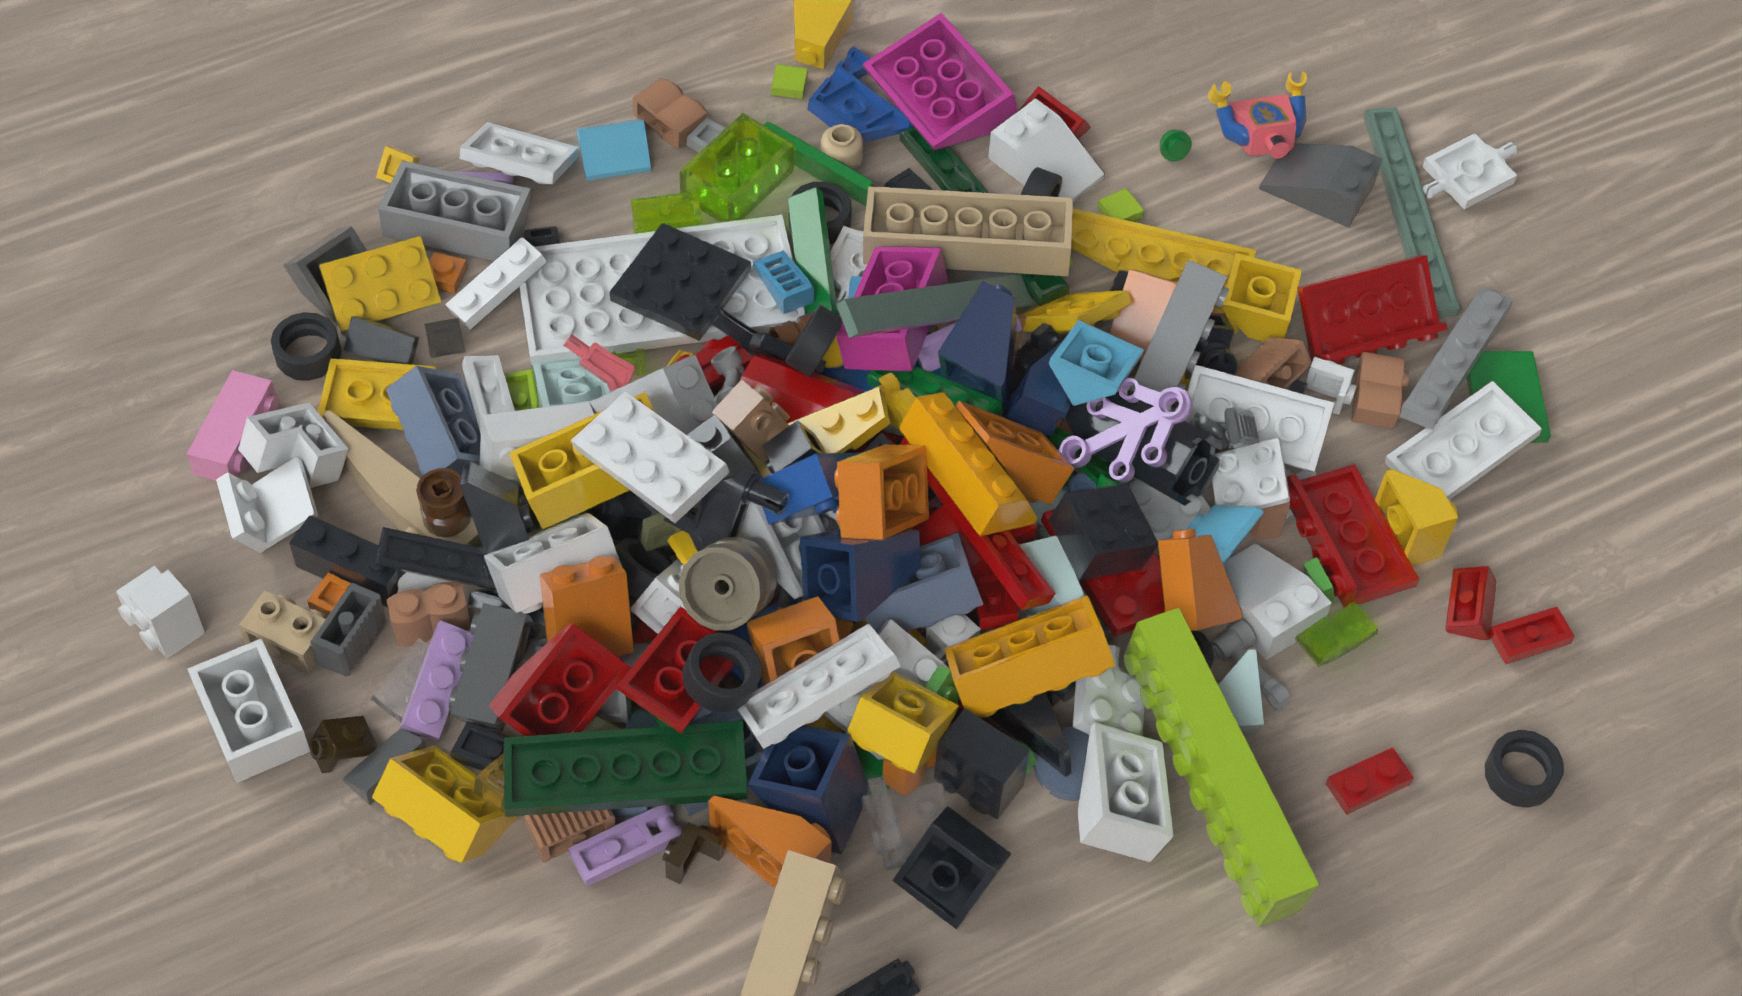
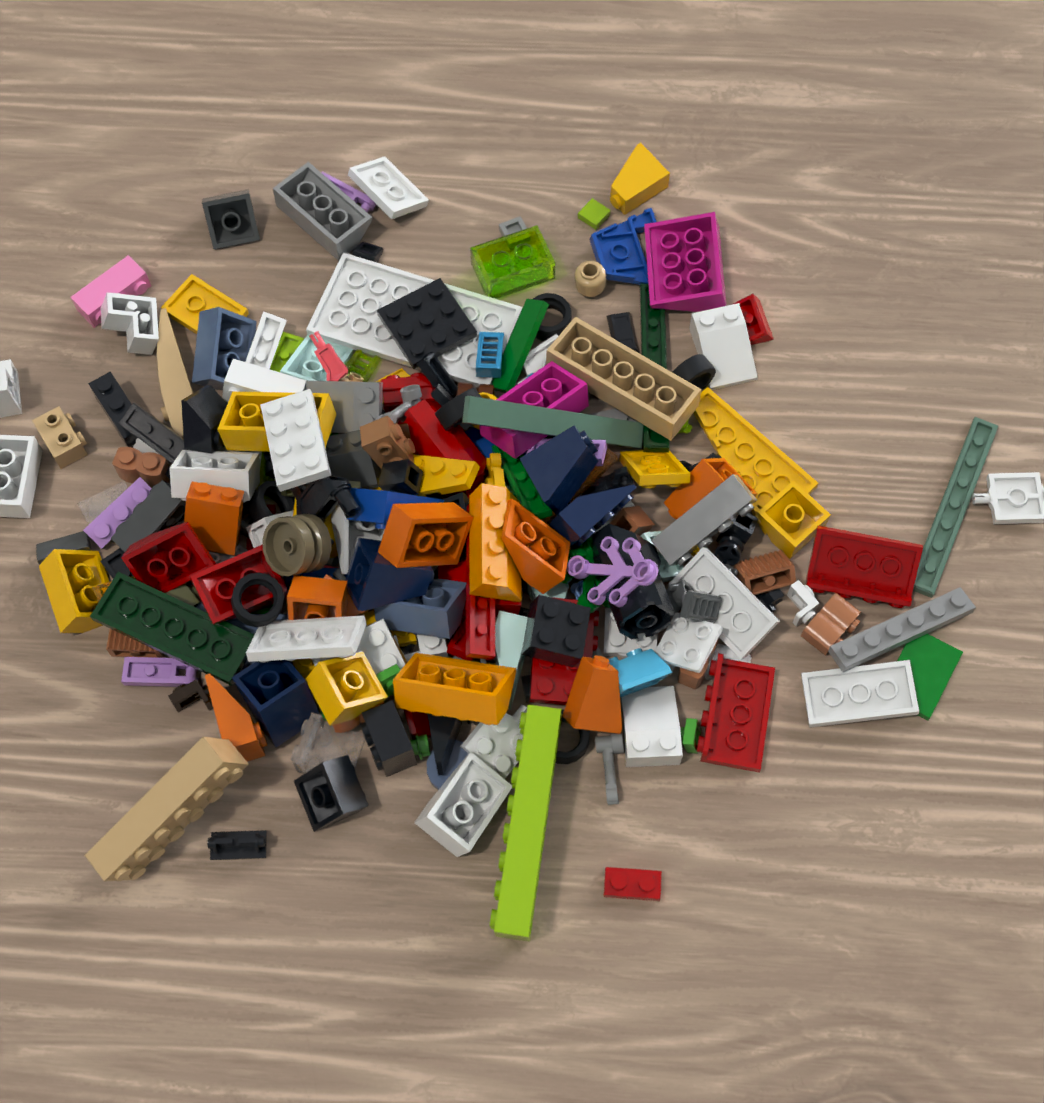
camera: 35 degrees right, 10 degrees up
(270, 507) = (94, 353): white bracket -> none
(299, 326) = (179, 244): black tyre -> none
(327, 594) = (99, 429): orange plate -> none
(341, 740) = (48, 521): dark brown bracket -> none
(348, 629) = (90, 454): dark grey brick -> none
(380, 282) = (248, 238): yellow plate -> none
(380, 342) = (227, 277): black tile -> none
(391, 161) = (313, 157): yellow plate -> none
(443, 502) = (174, 394): reddish brown wheel -> none
(444, 337) = (268, 291): clear smoke tile -> none
(447, 271) = (296, 247): orange plate -> none
(496, 283) = (317, 270): white plate -> none
(613, 149) = (451, 209): medium azure slope -> none
(668, 111) = (500, 200): nougat brick -> none
(674, 210) = (451, 271): clear neon green hinge -> none
(826, 168) = (570, 282): green tile -> none
(1092, 363) = (619, 514): medium azure slope -> none
(1121, 206) = (751, 407): lime tile -> none
(1175, 145) = (818, 380): green plate -> none
(1243, 693) = (579, 783): light aqua slope -> none
(1263, 123) = (890, 394): torso -> none
(1324, 179) = (905, 454): dark grey slope -> none
(1337, 636) = (680, 777): clear neon green slope -> none
(1417, 515) = (785, 728): yellow slope -> none
(1471, 602) = (789, 804): red slope -> none
(1531, 635) = (810, 848): red plate -> none
(1536, 746) = (755, 921): black tyre -> none

